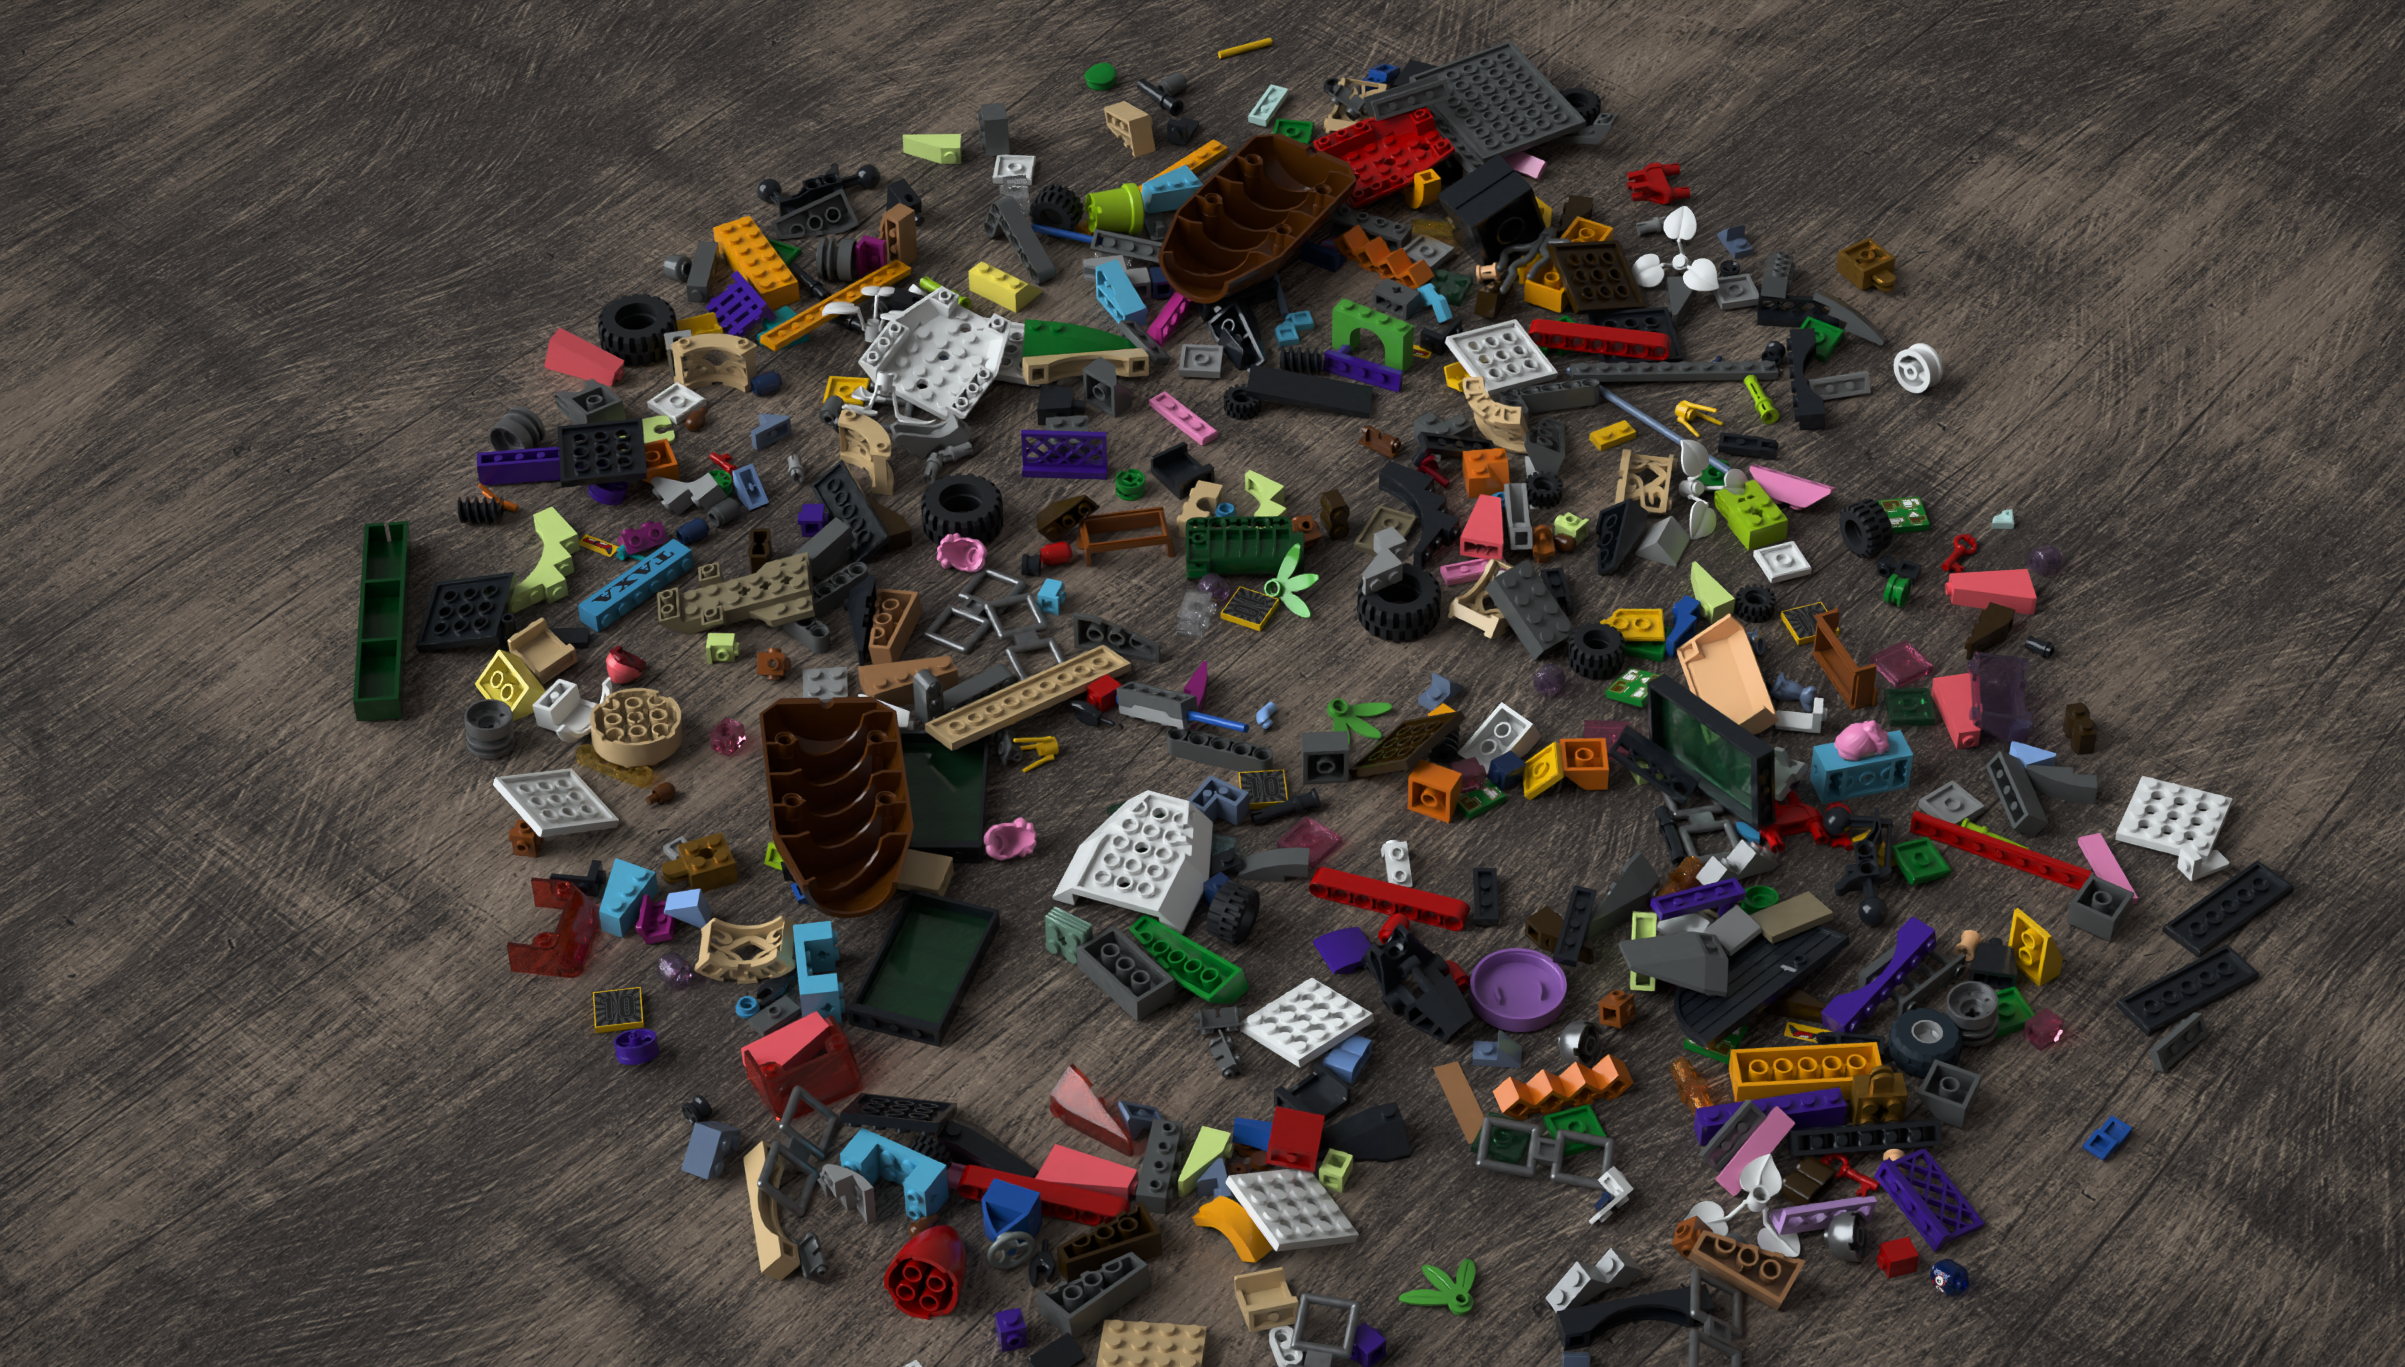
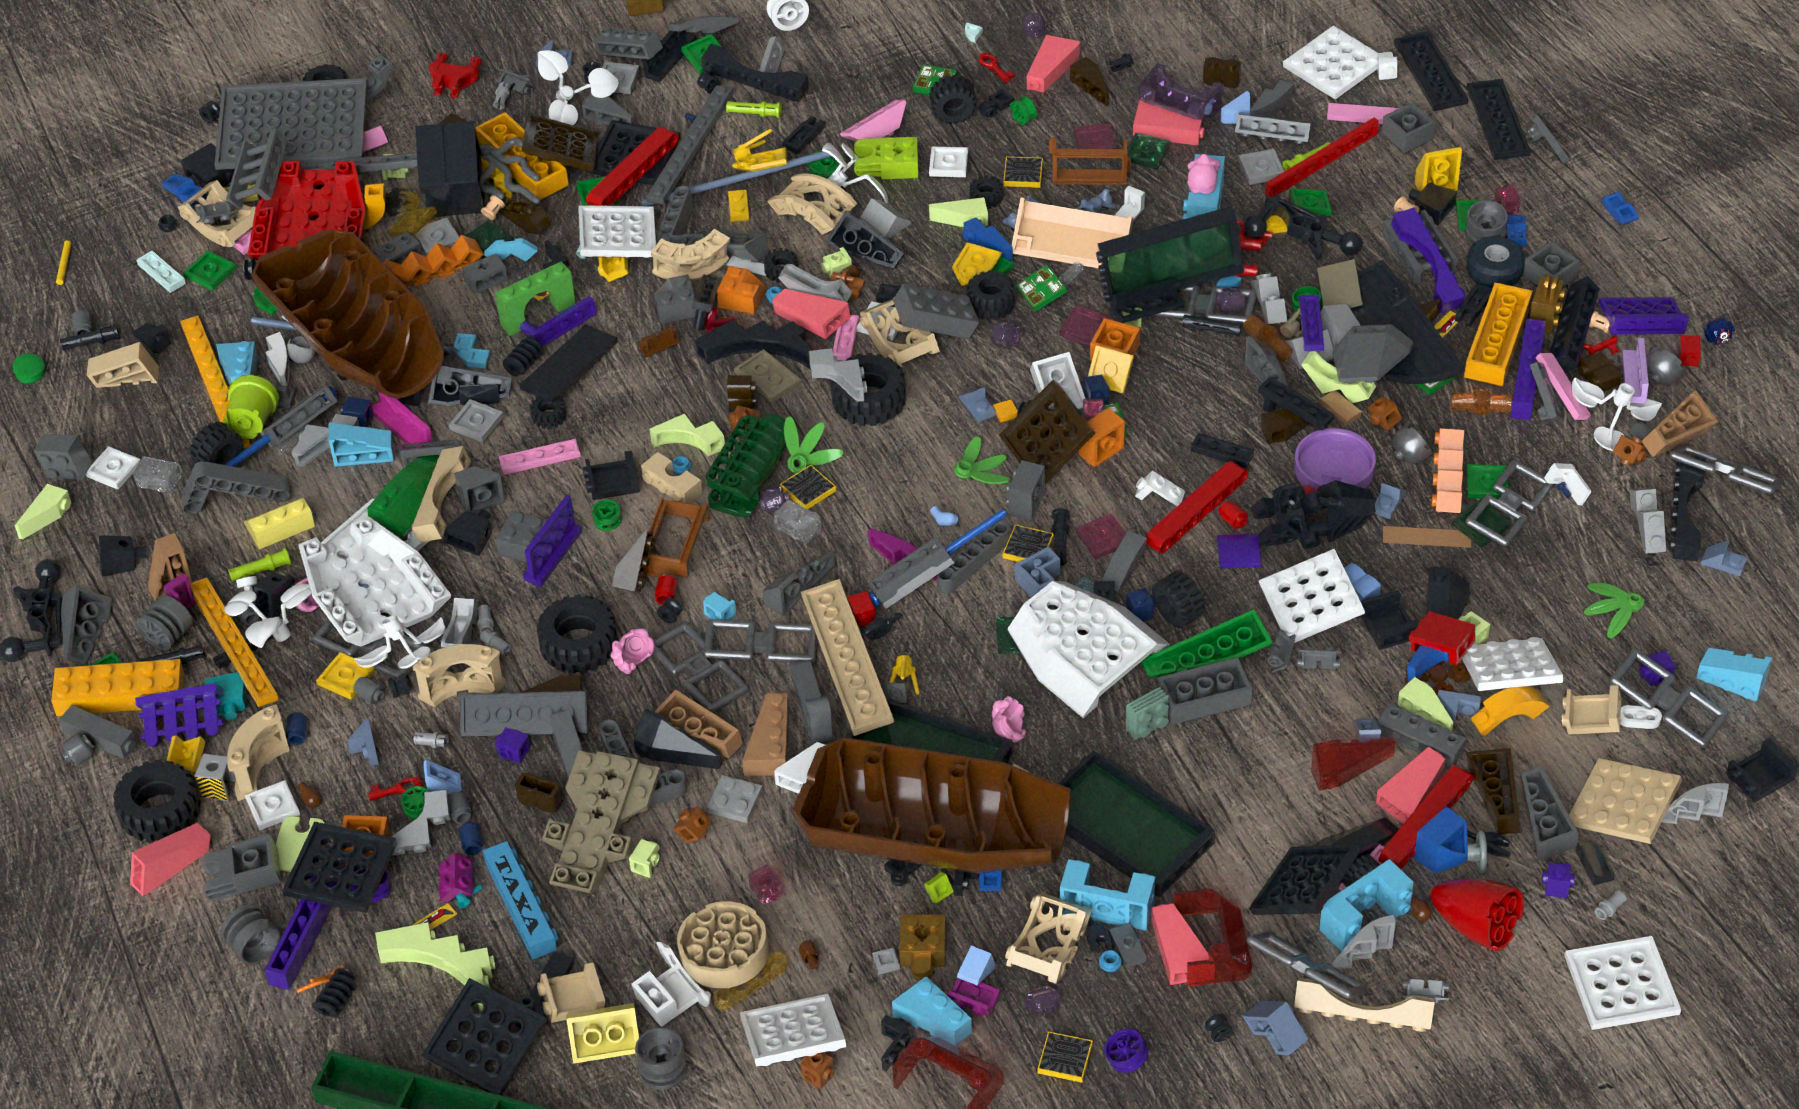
camera: 65 degrees left, 5 degrees up
(624, 666) = (629, 935): hair -> none
(1612, 976) = (1340, 407): none -> medium nougat tile
(1681, 426) = (763, 160): none -> yellow tile
(1715, 837) = (1230, 300): none -> clear purple head
(2007, 1052) = (1516, 229): none -> blue slope

